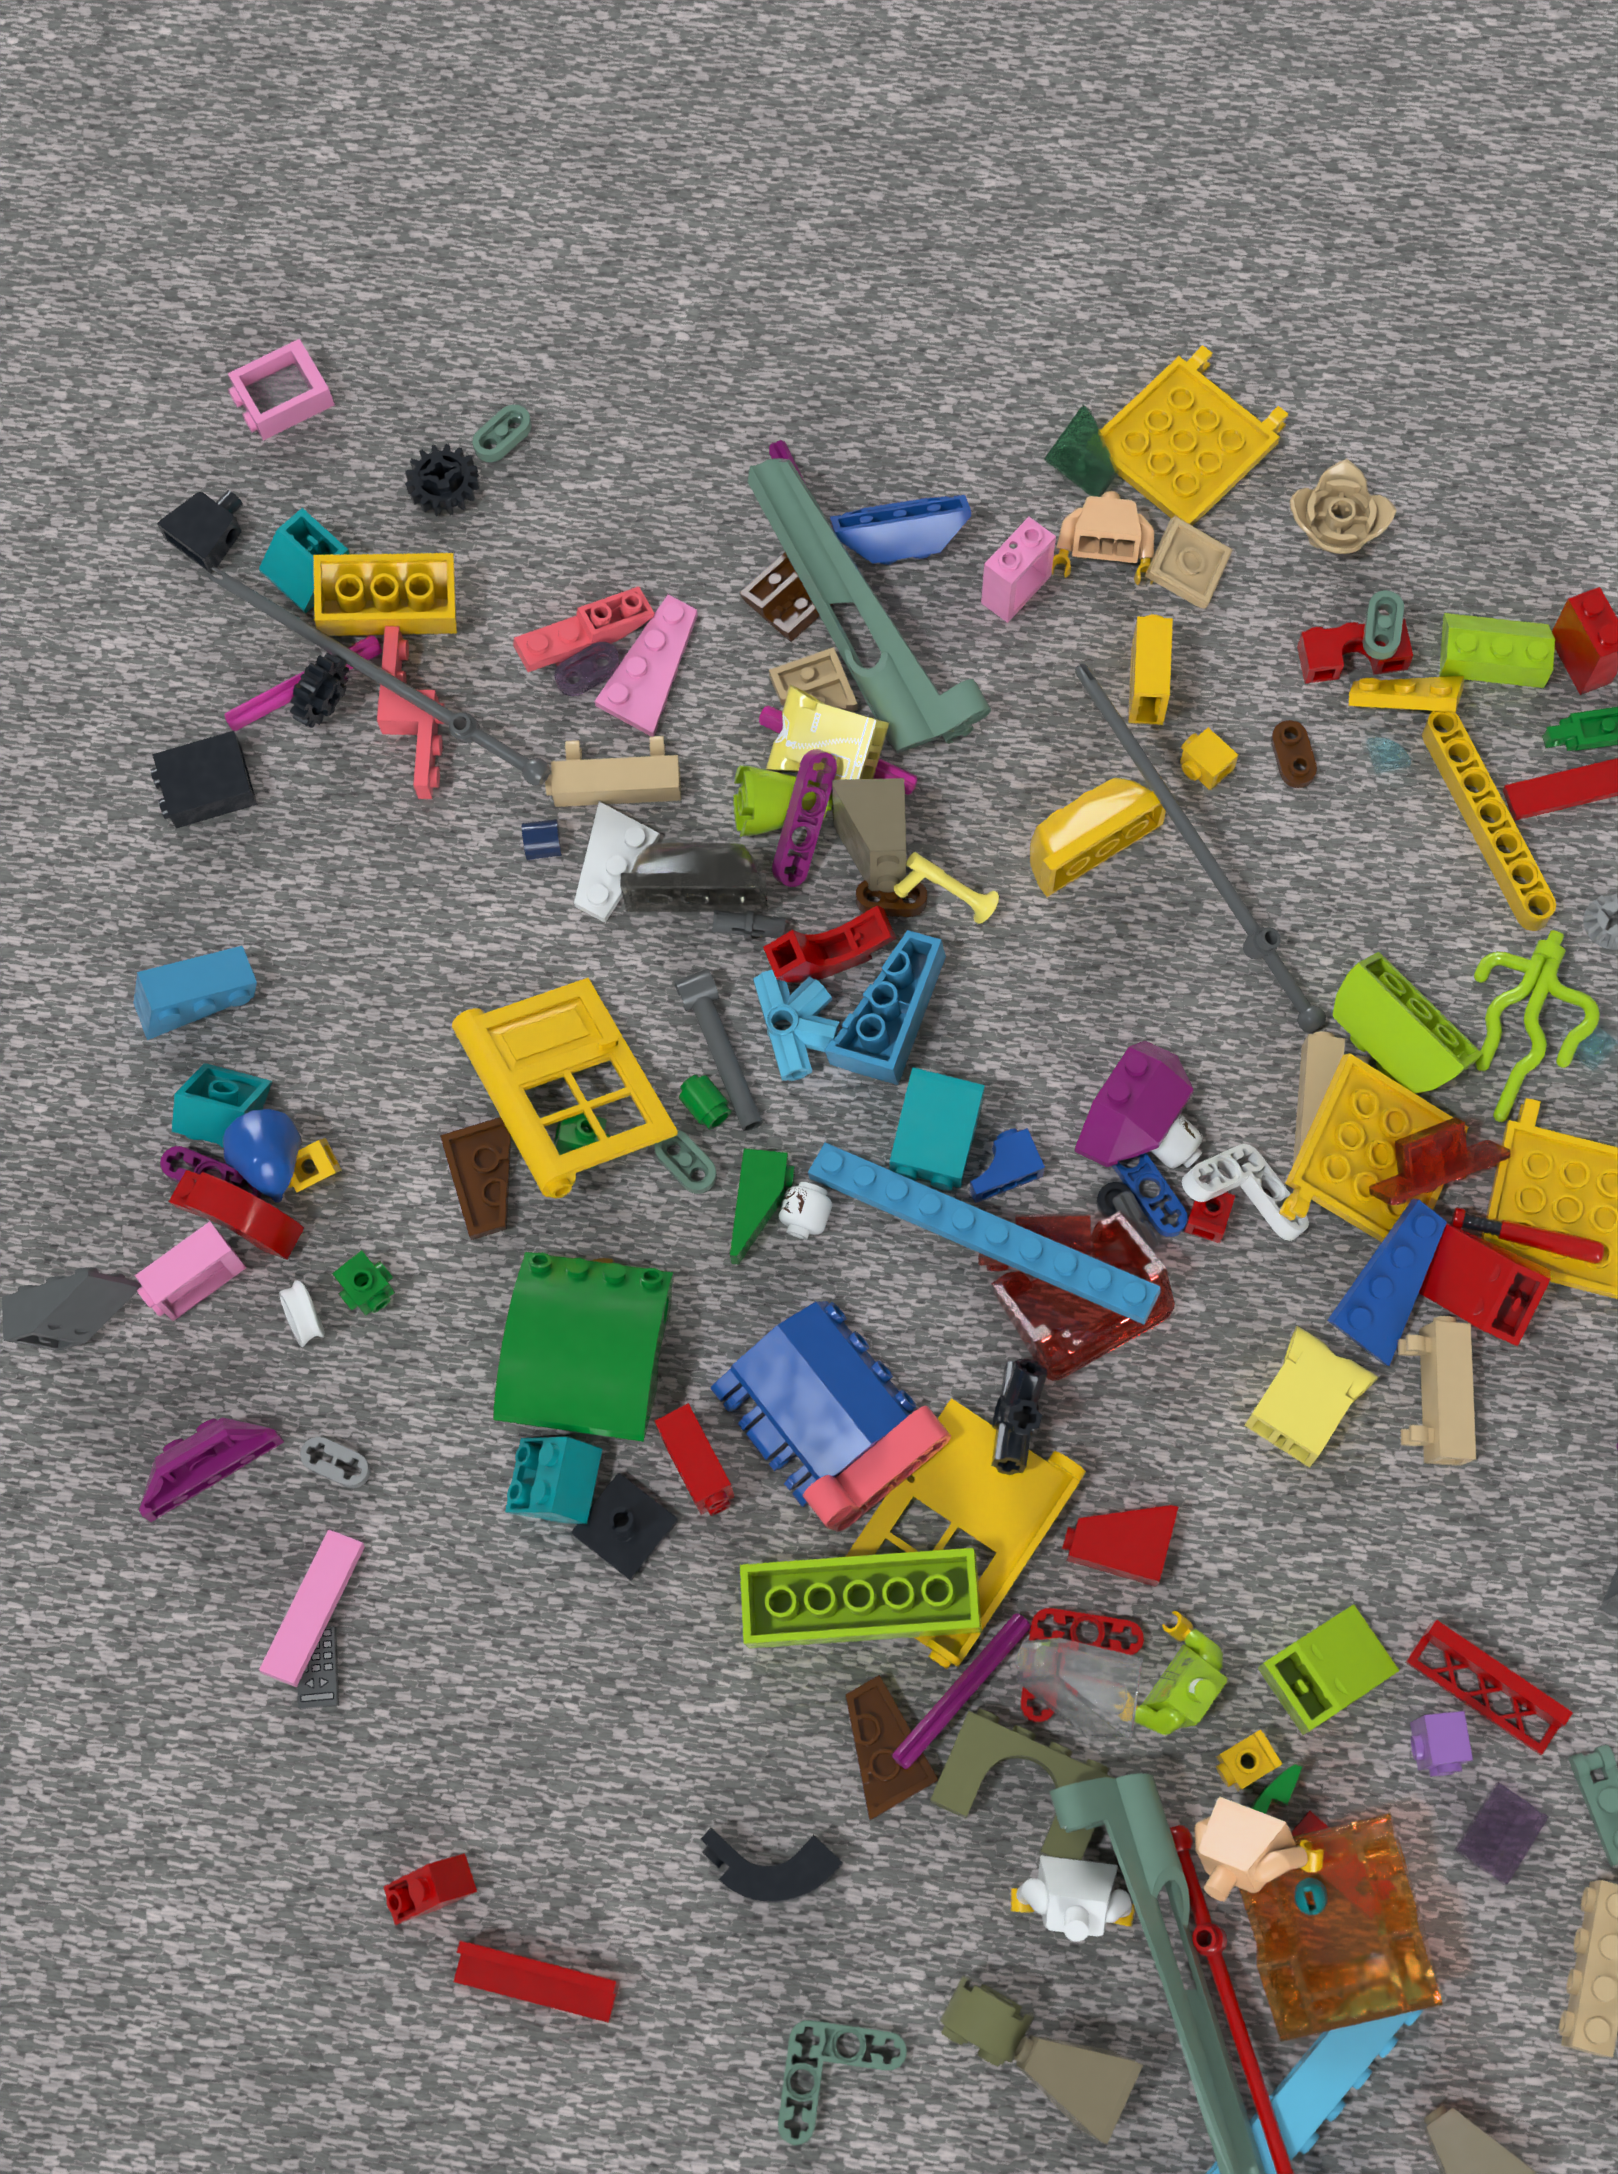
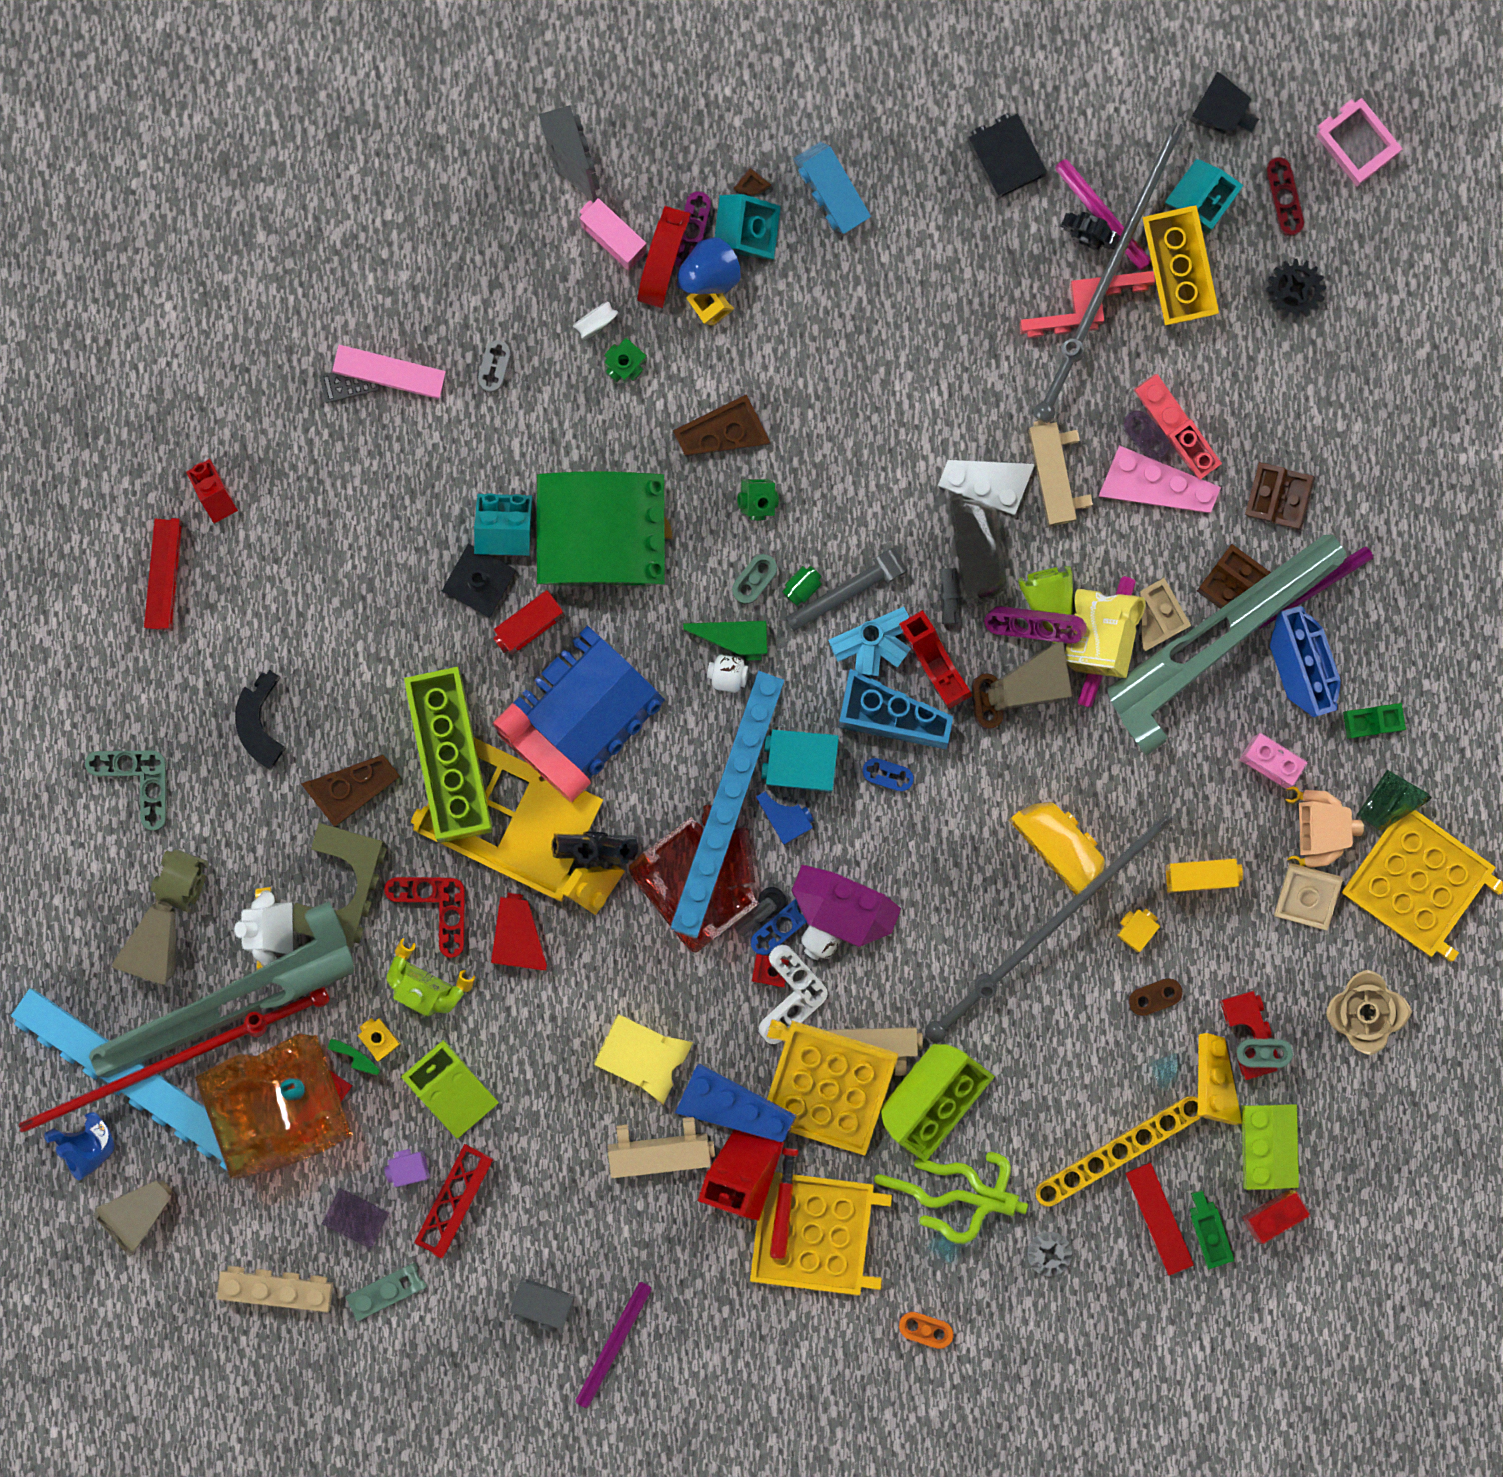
camera: 75 degrees right, 15 degrees up
(163, 1092) = (751, 184): none -> reddish brown tile
(202, 1461) = (480, 272): magenta wedge -> none
(318, 471) = (1295, 214): none -> dark red beam
(499, 433) = (1348, 326): sand green plate -> none
(541, 839) = (997, 425): dark blue brick -> none
(551, 1040) = (829, 460): yellow door -> none
(690, 532) = (1280, 495): none -> reddish brown slope
(922, 868) = (990, 771): light yellow piece -> none
(961, 1028) = (889, 768): none -> blue beam
(961, 1691) = (397, 834): magenta axle -> none
(982, 467) = (1374, 720): none -> green slope
(1068, 1429) = (592, 886): none -> yellow wing
(1083, 1685) = (411, 917): clear slope -> none
(1248, 1849) = (312, 1040): light nougat torso -> none
(1434, 1159) = (829, 1131): clear red bracket -> none

